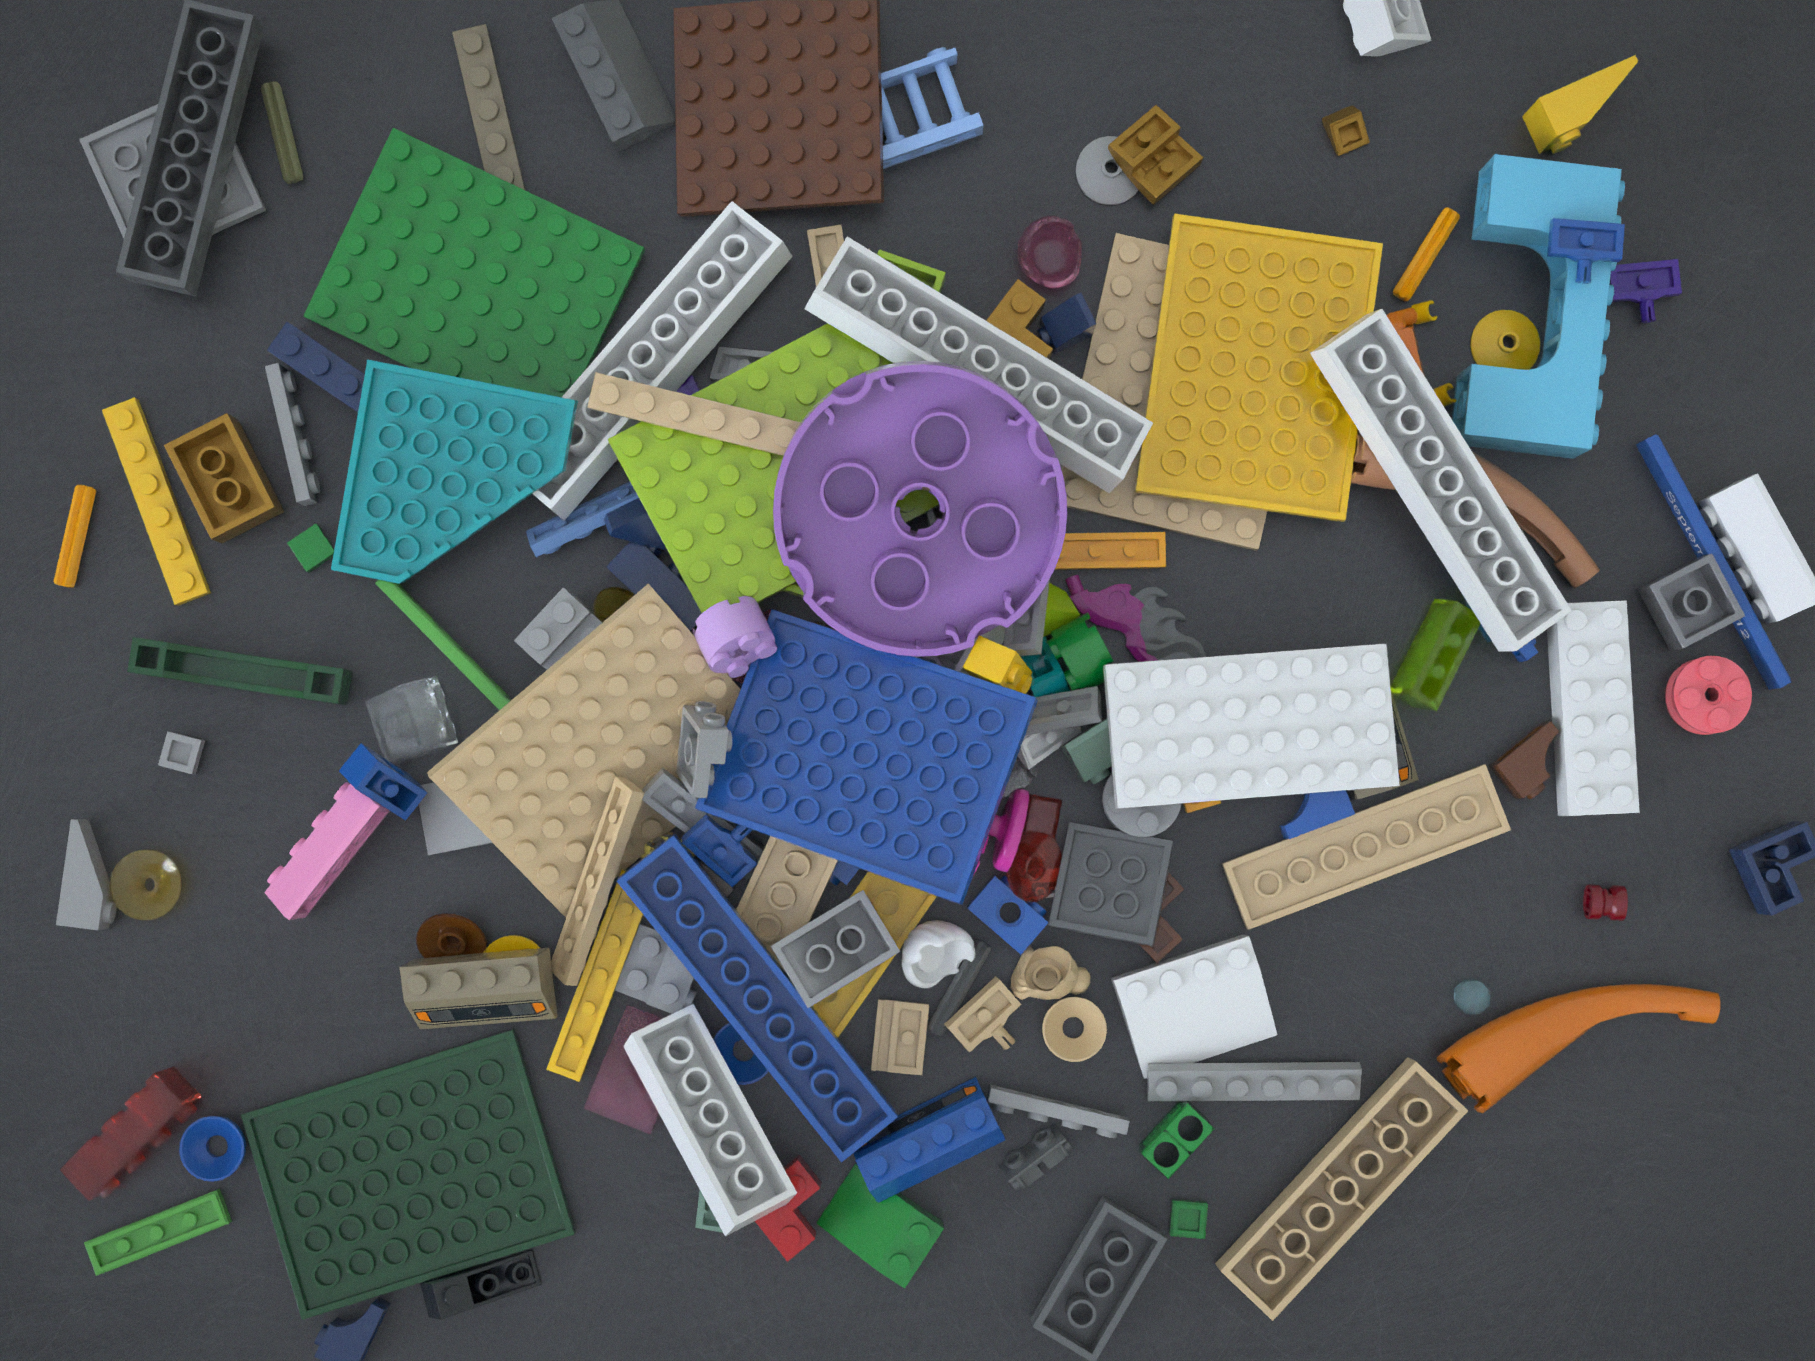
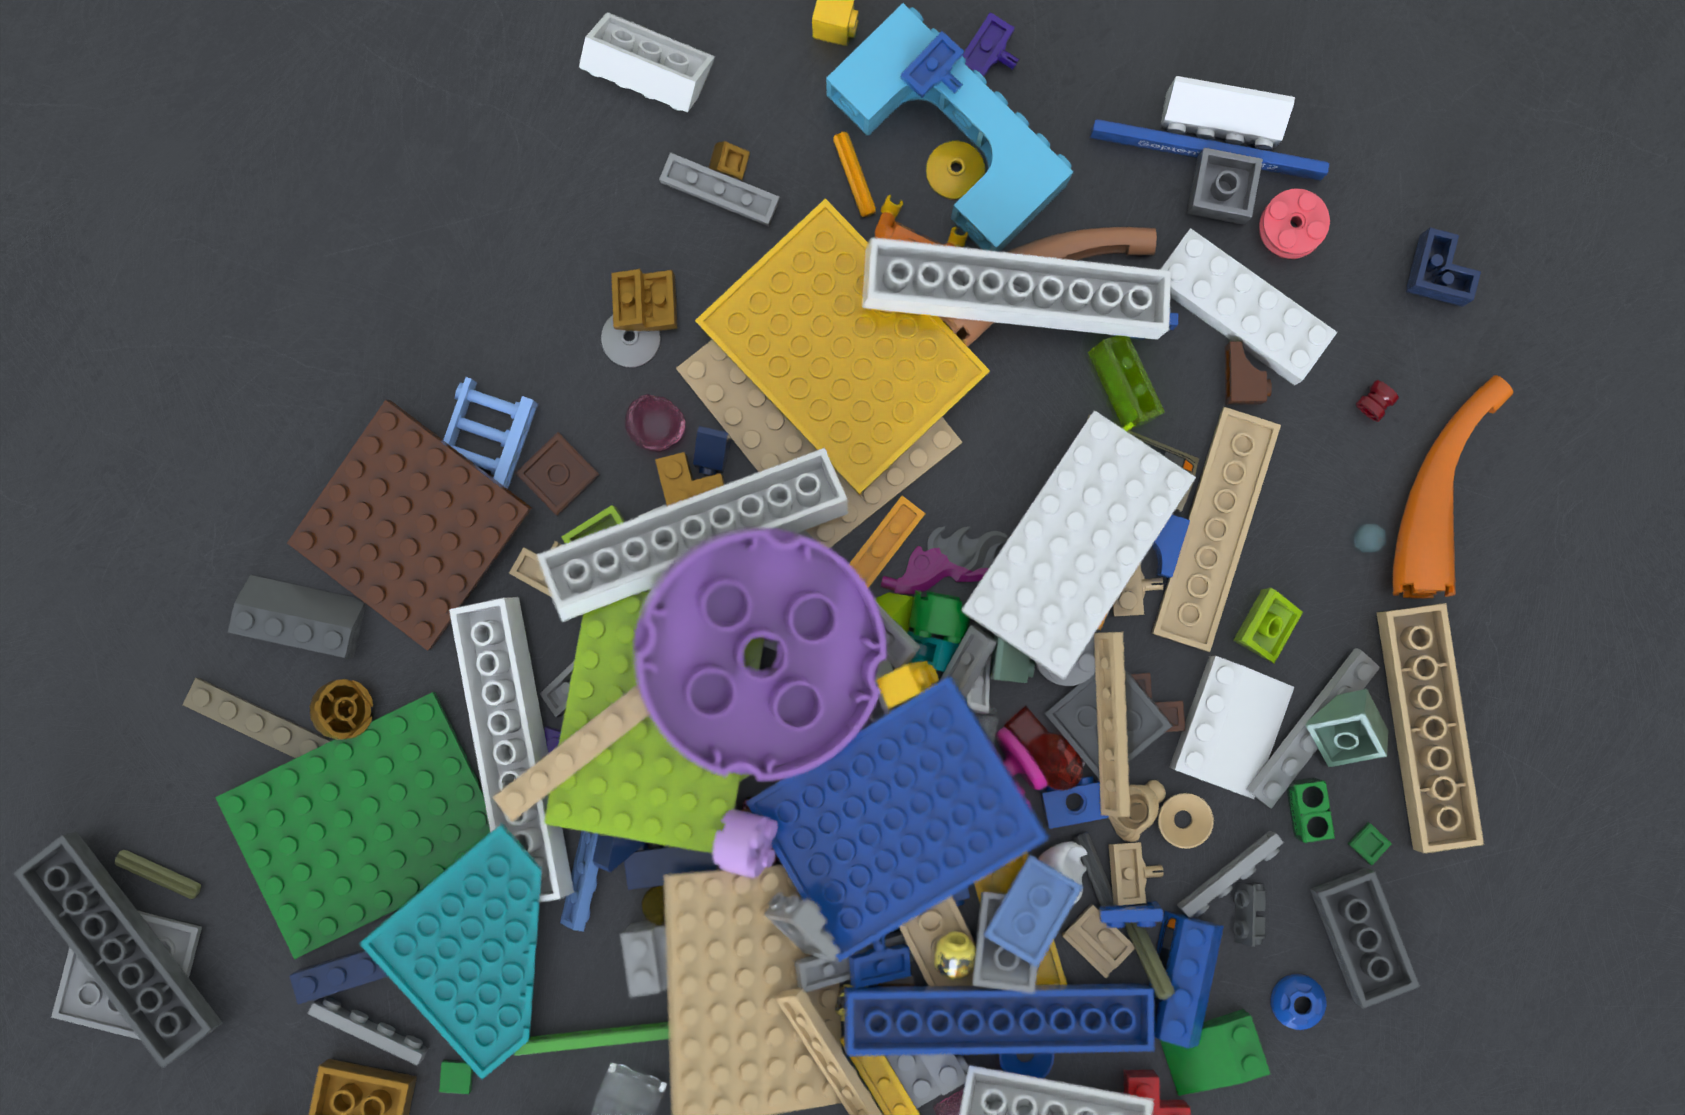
camera: 45 degrees left, 0 degrees up
(563, 176) = (341, 709): none -> pearl gold cylinder
(783, 910) = (955, 955): none -> light yellow head
(882, 948) = (1033, 910): none -> medium blue tile
(922, 1093) = (1150, 960): none -> olive axle
(932, 203) = (557, 474): none -> reddish brown tile
(956, 1057) = (1144, 915): none -> blue wing
(987, 1248) = (1286, 993): none -> blue piece
(1110, 888) = (1112, 724): none -> tan plate
(1244, 814) = (1131, 597): none -> tan plate
(1279, 1114) = (1349, 729): none -> sand green slope
(1312, 142) = (719, 189): none -> light grey plate
(1316, 966) = (1268, 625): none -> lime slope

